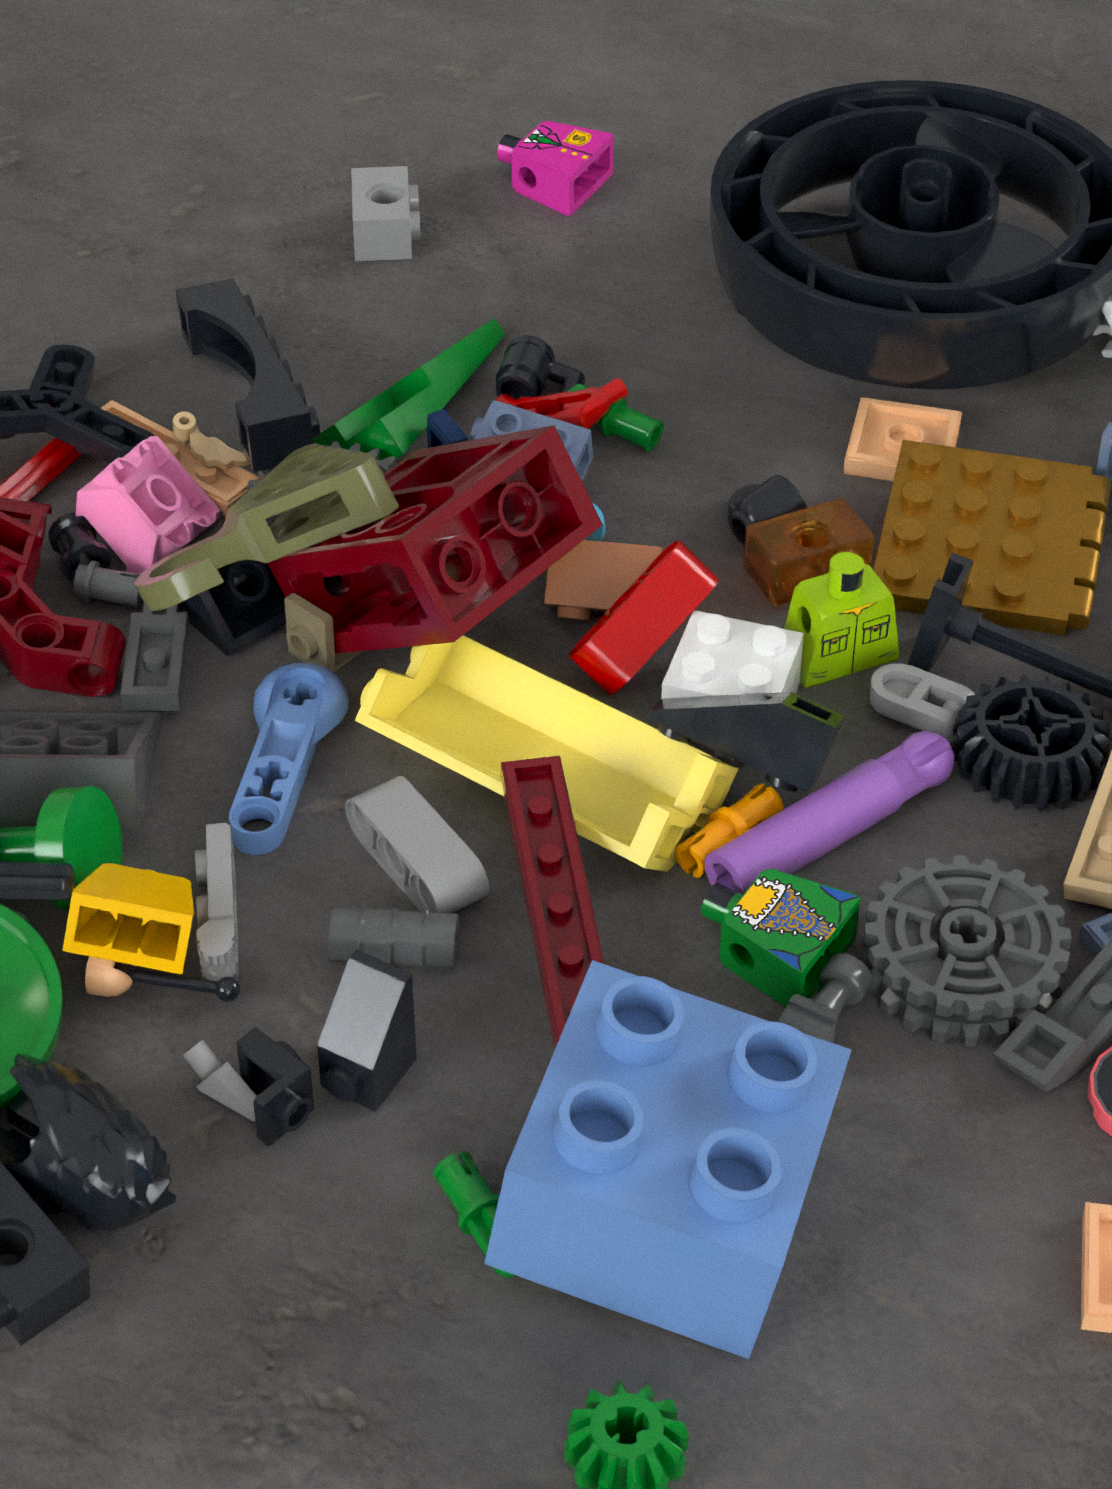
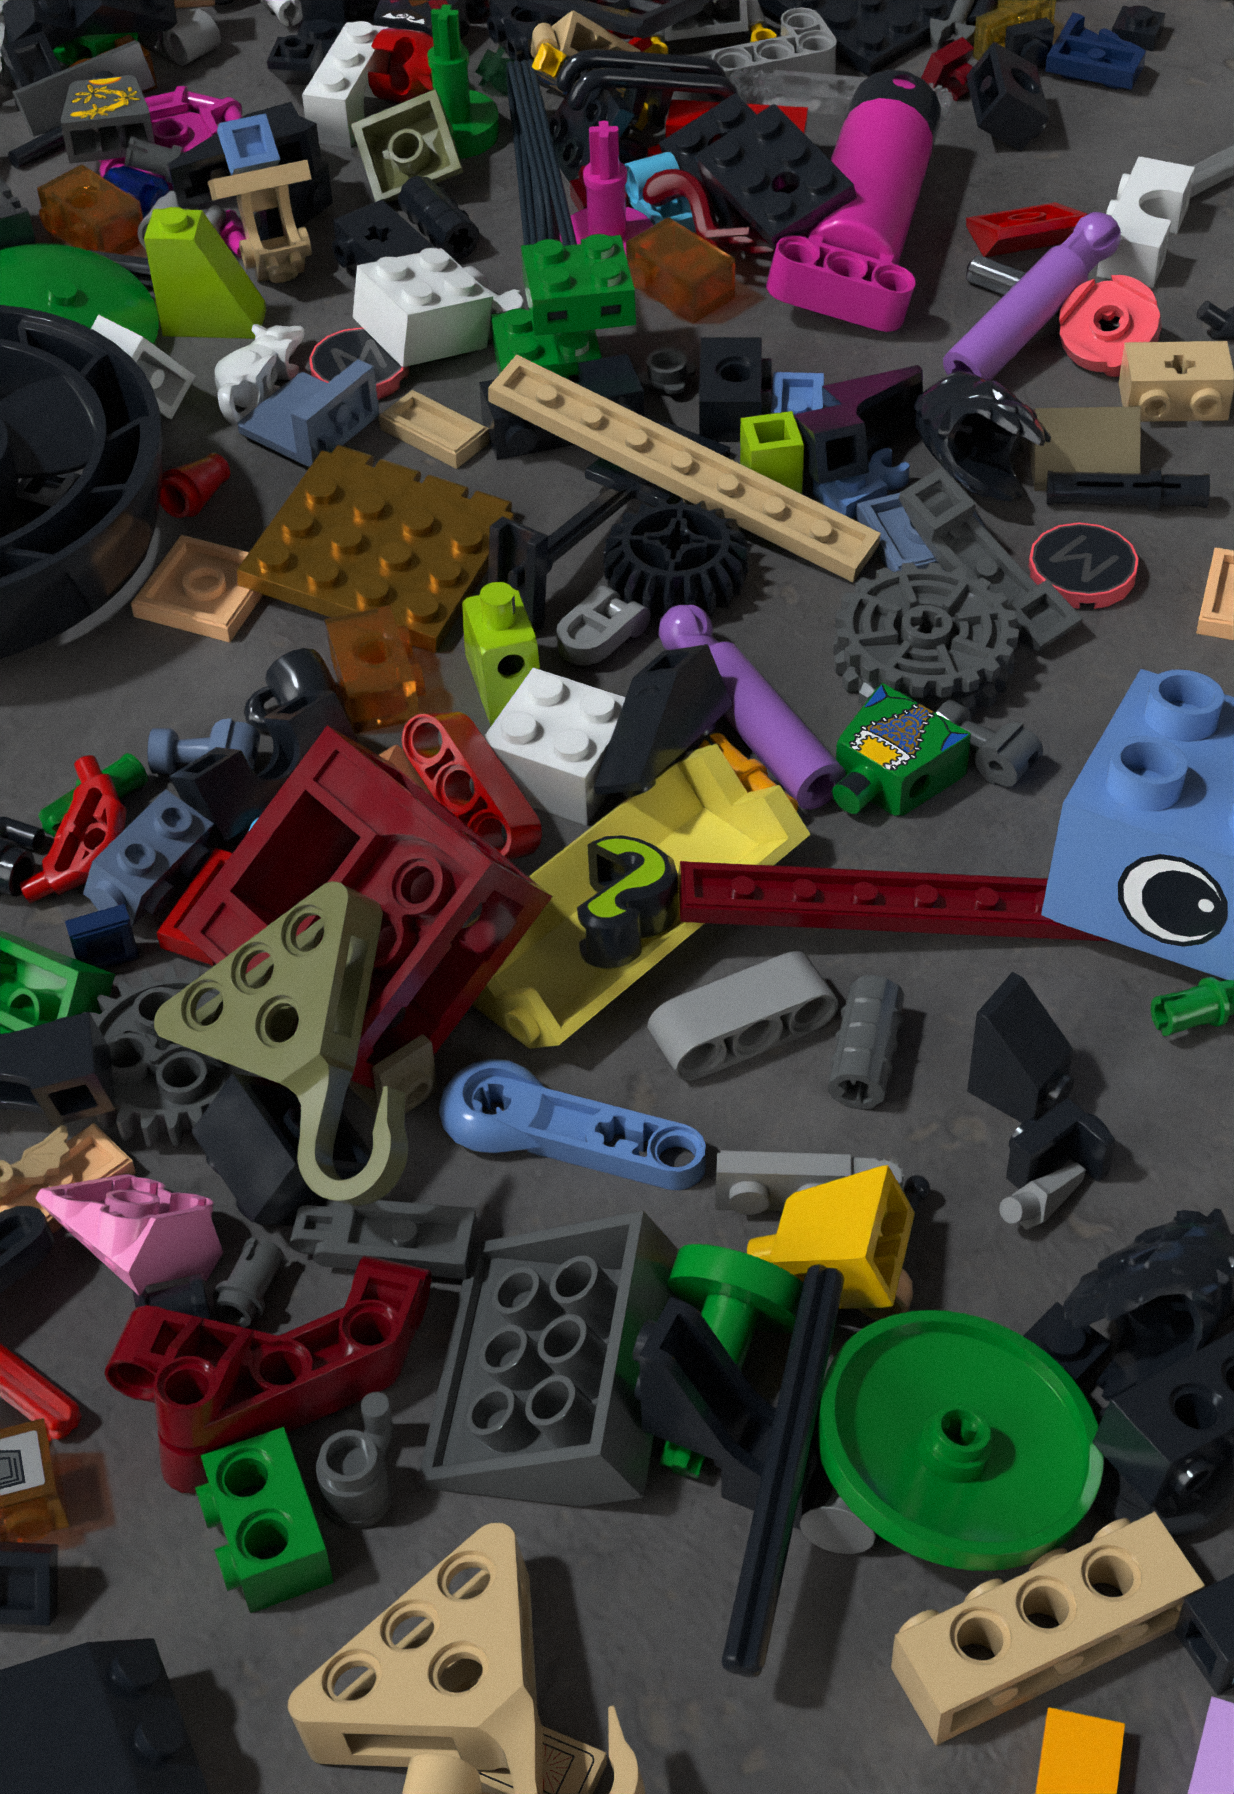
camera: 80 degrees left, 5 degrees up
(505, 733) = (632, 902): none -> black animal
(620, 485) = (226, 787): none -> black arch
(683, 479) = (167, 751): none -> sand blue leg
(1033, 406) = (192, 485): none -> red cone

